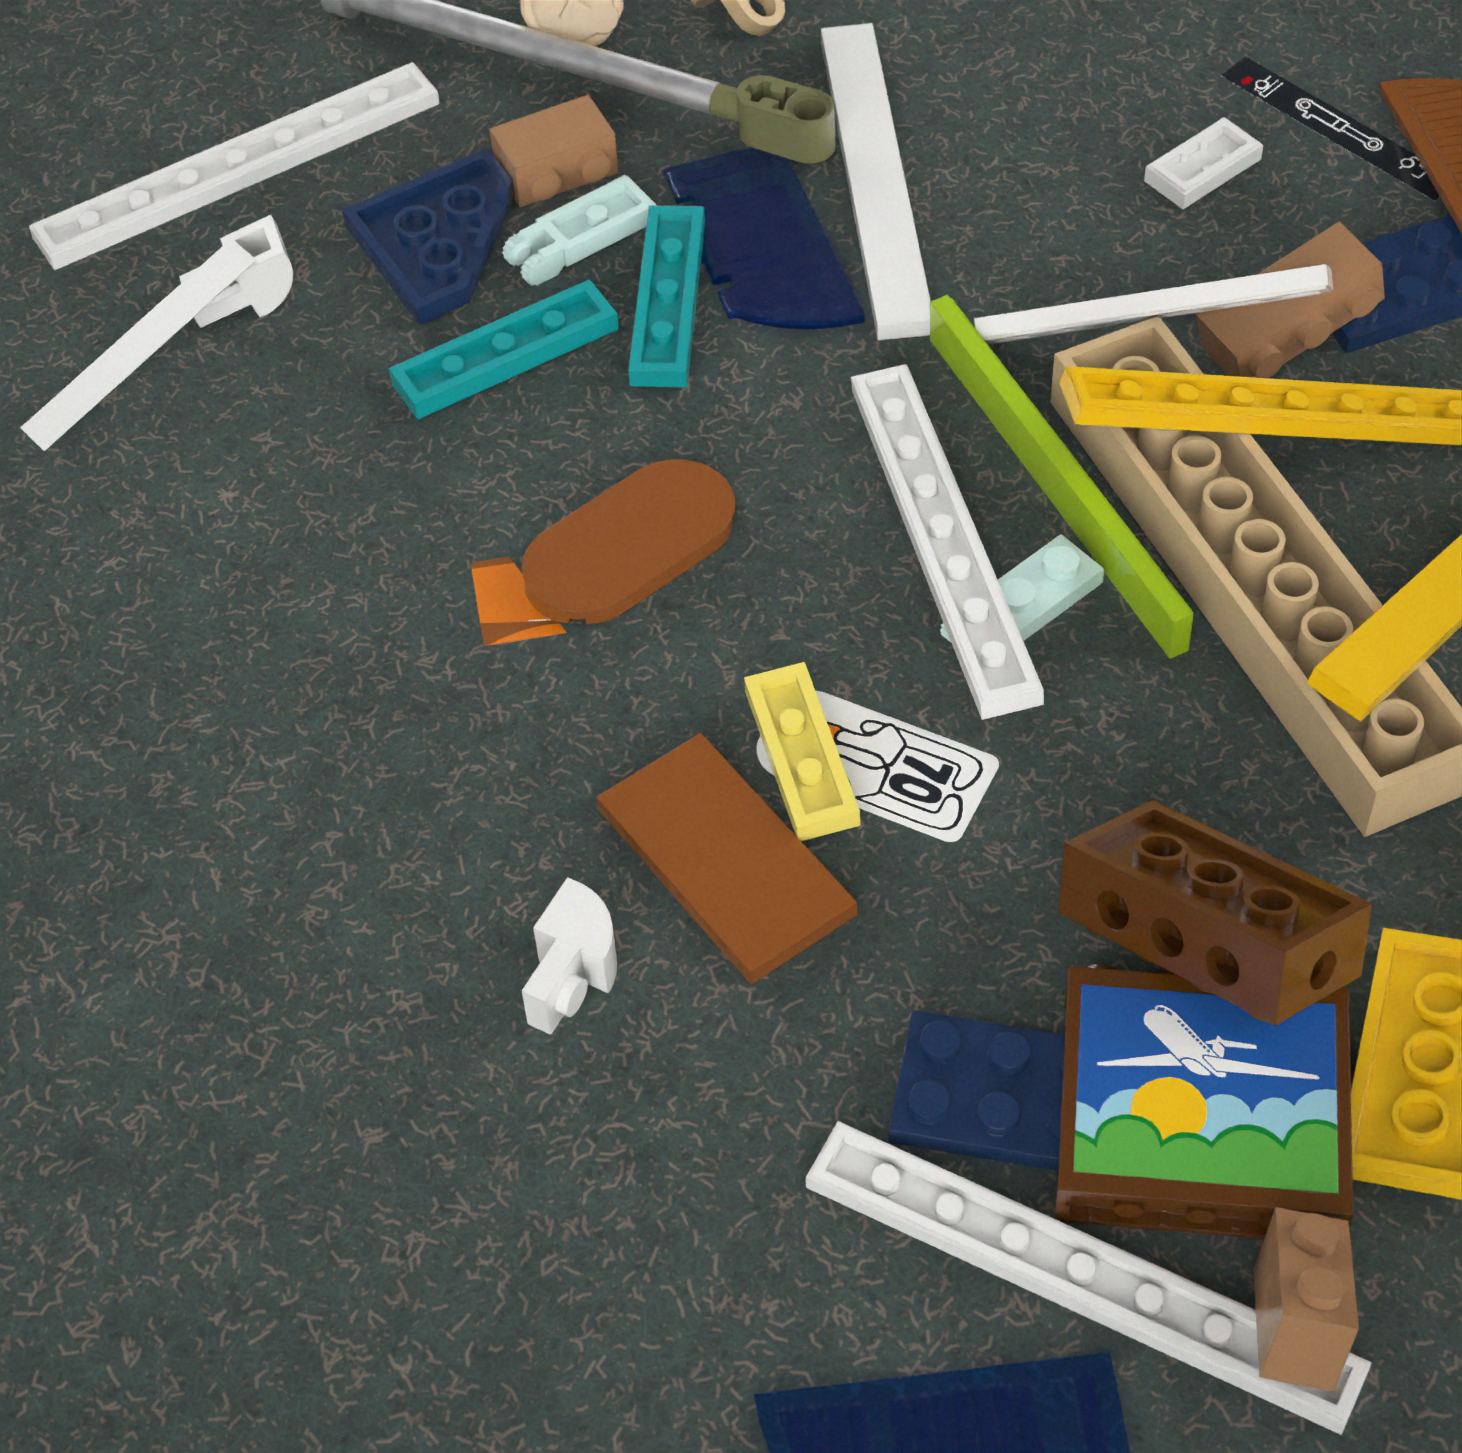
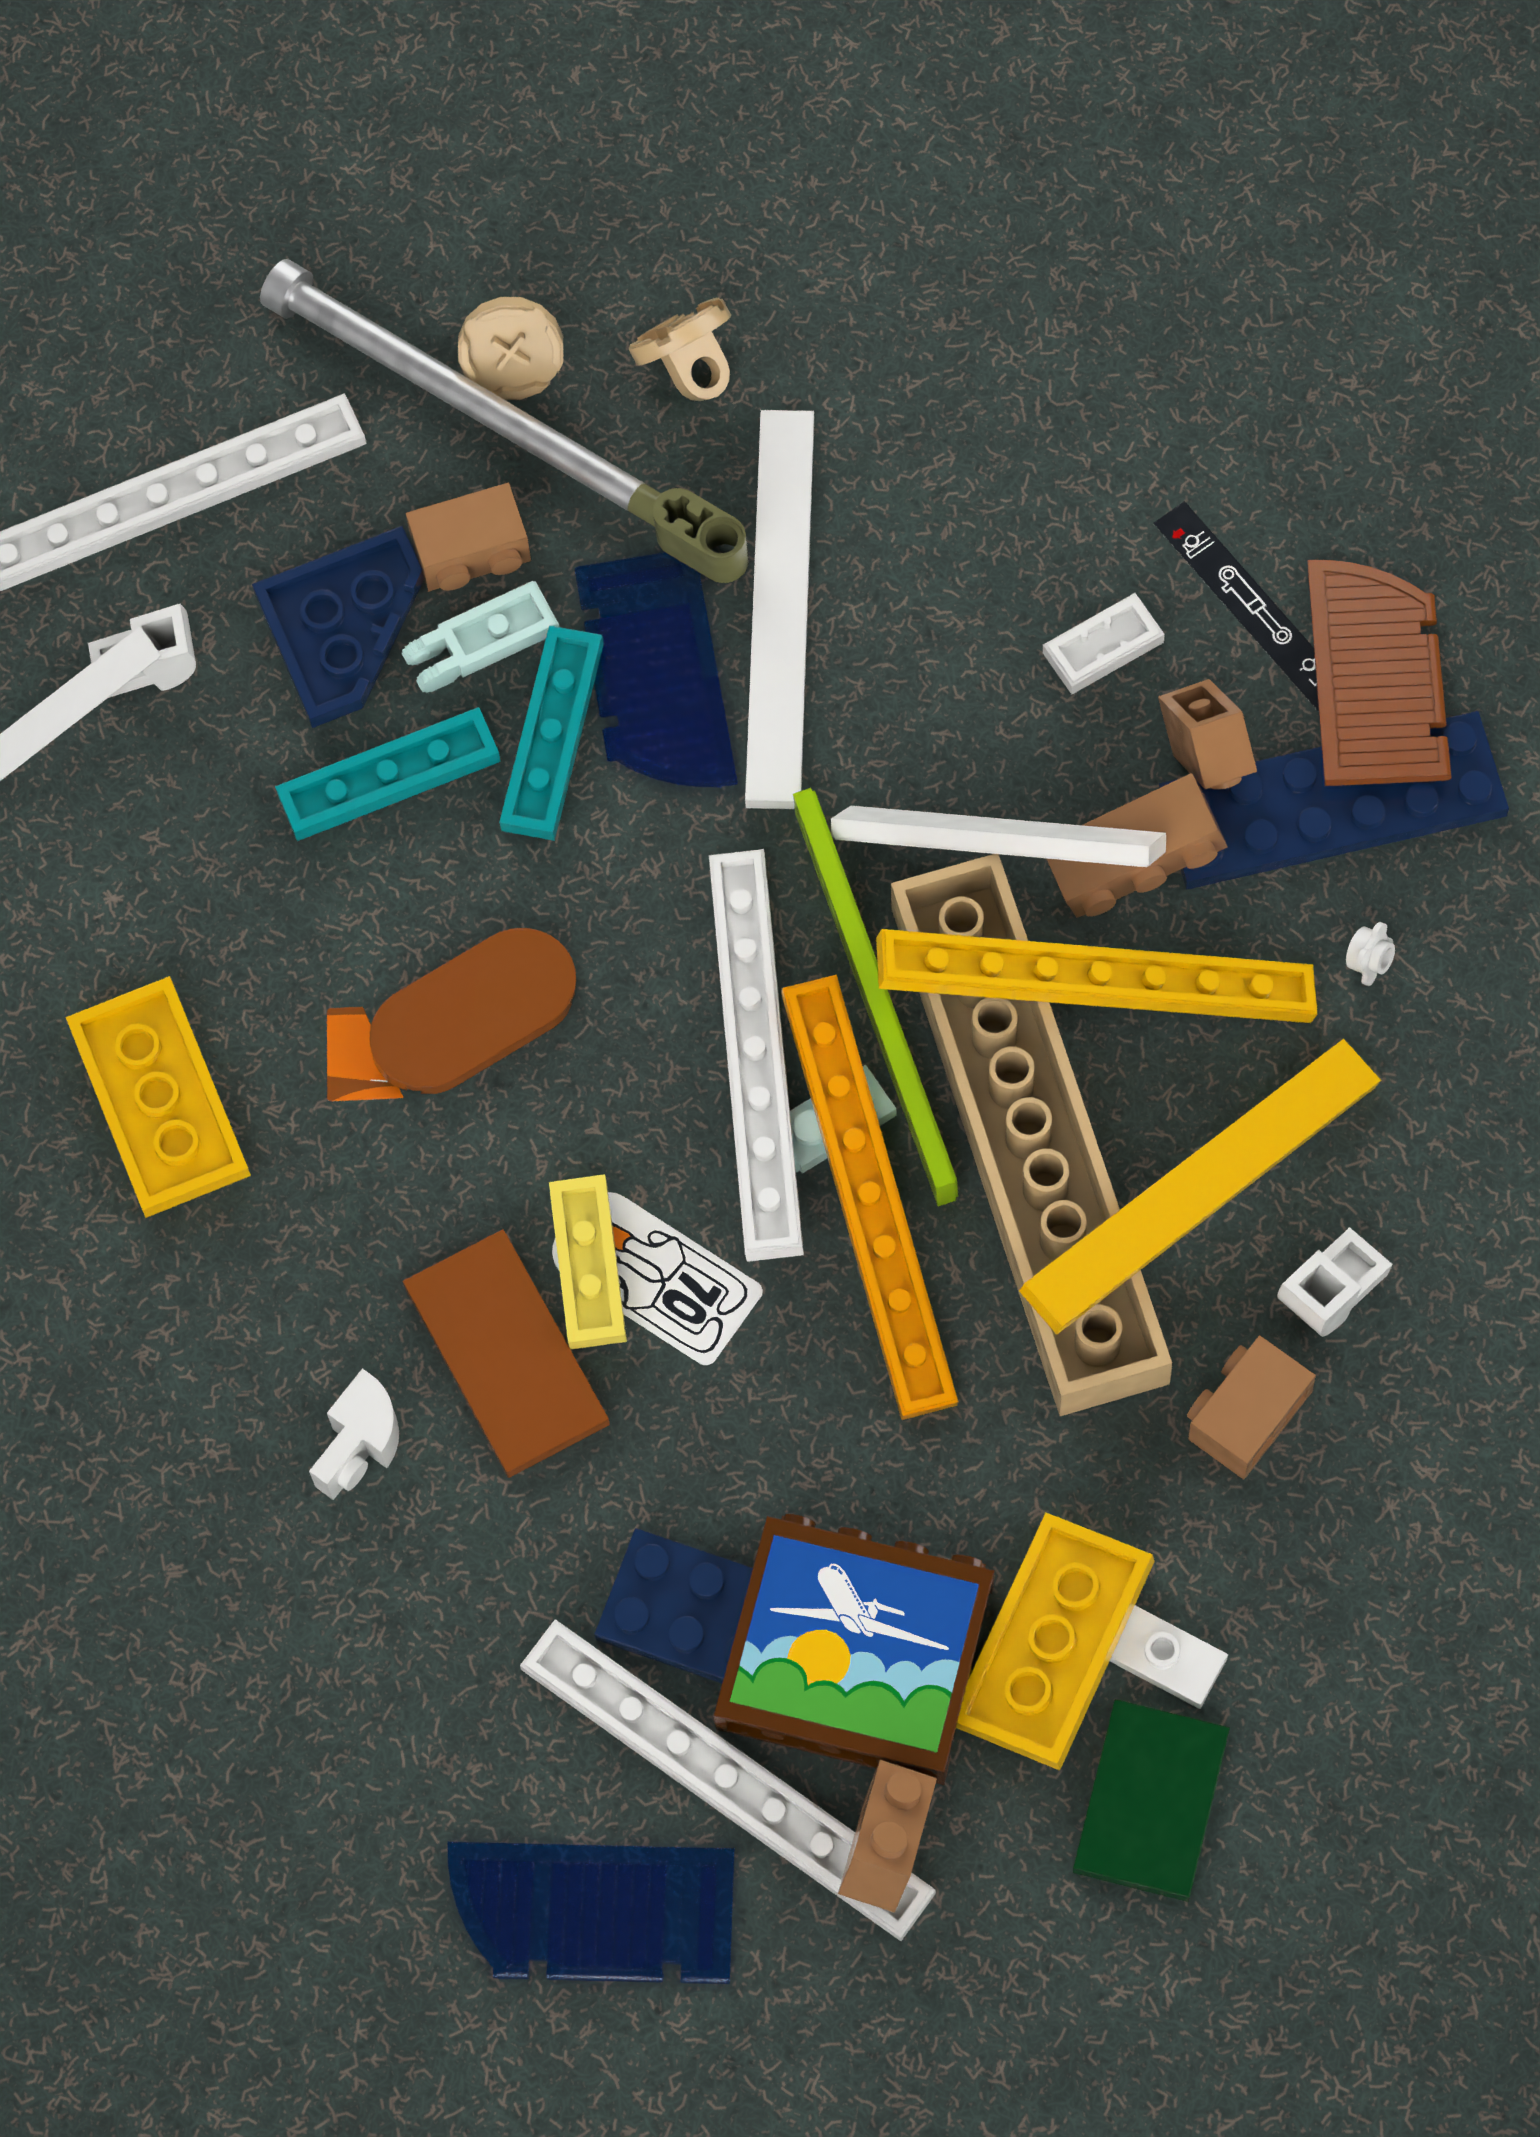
camera: 10 degrees right, 15 degrees up
(298, 659) = (158, 1097): none -> yellow plate
(1096, 640) = (869, 1197): none -> light orange tile
(1214, 911) = (893, 1488): reddish brown brick -> none
(1347, 192) = (1208, 735): none -> medium nougat brick

